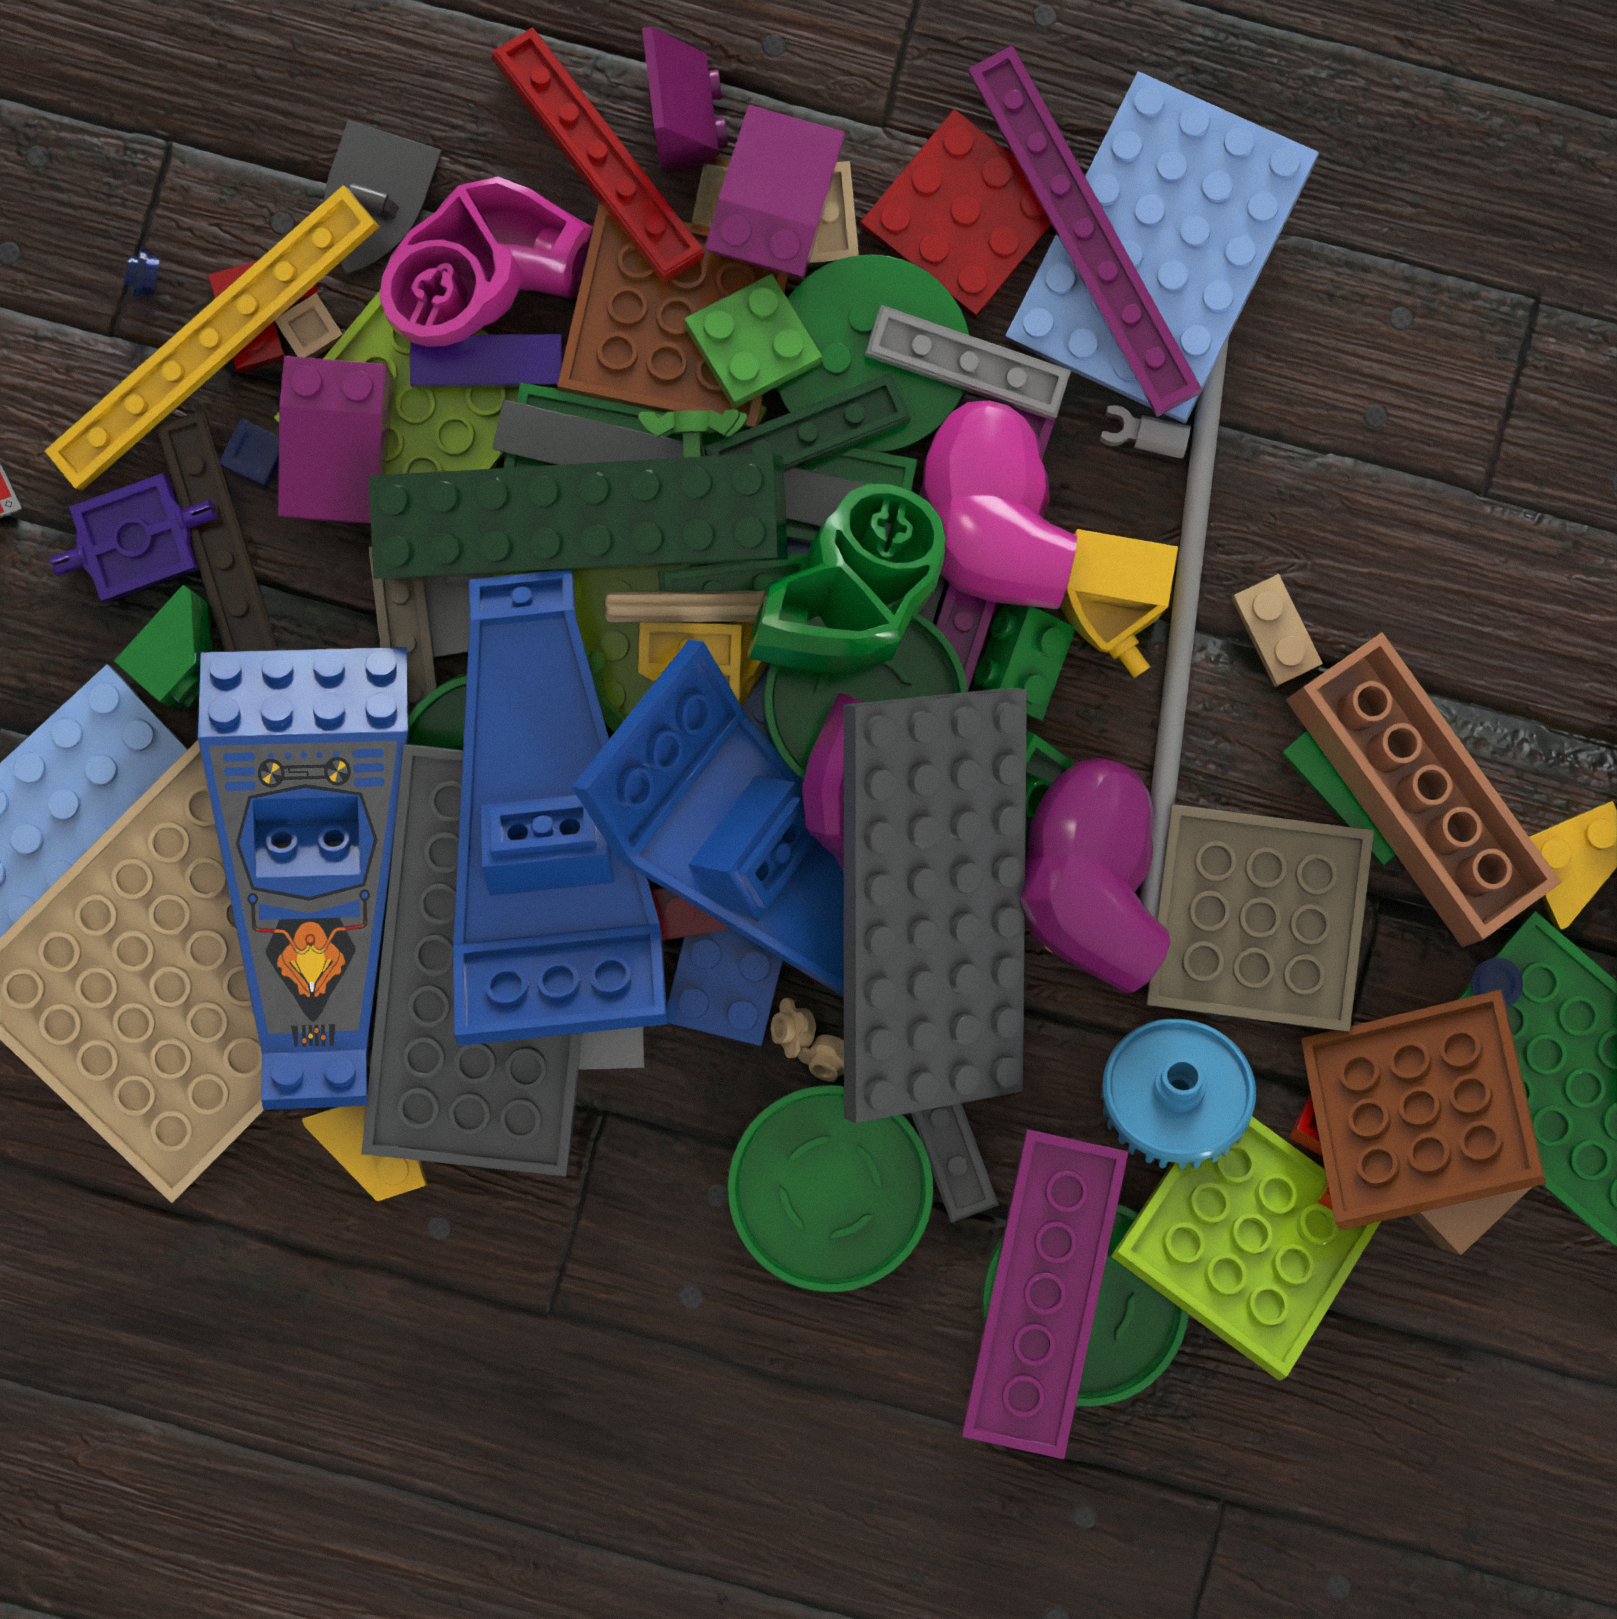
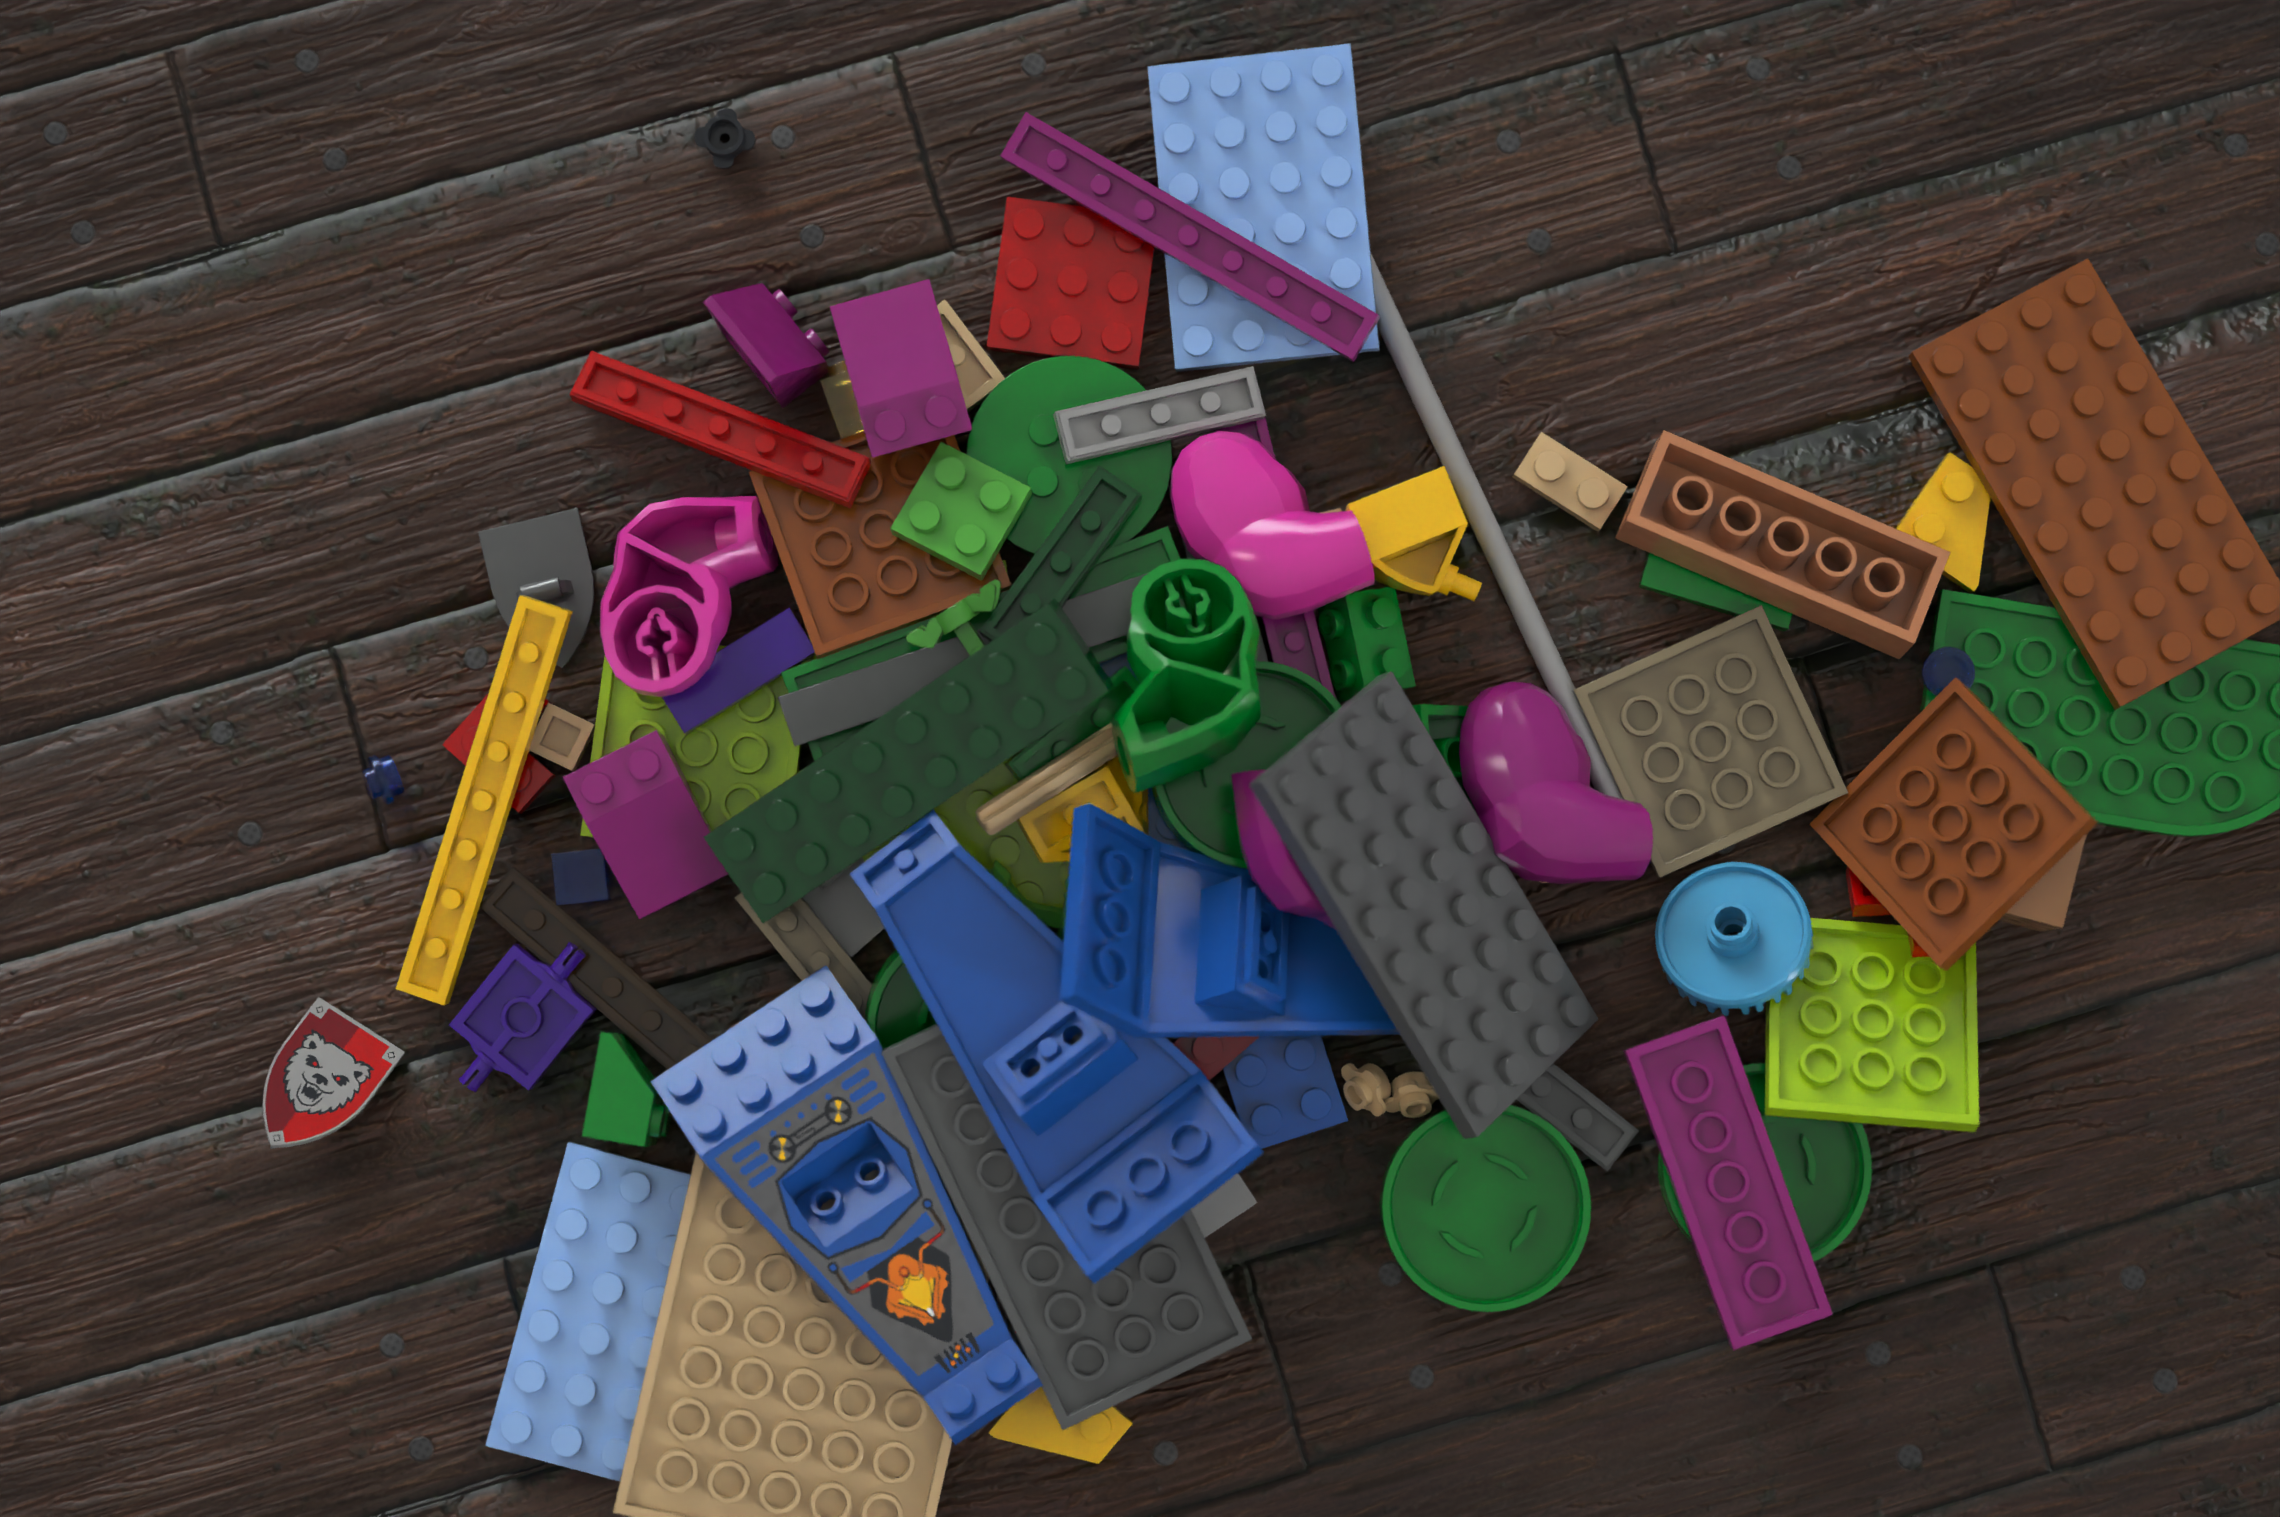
camera: 30 degrees left, 0 degrees up
(1147, 433) = (1352, 378): light grey bar -> none

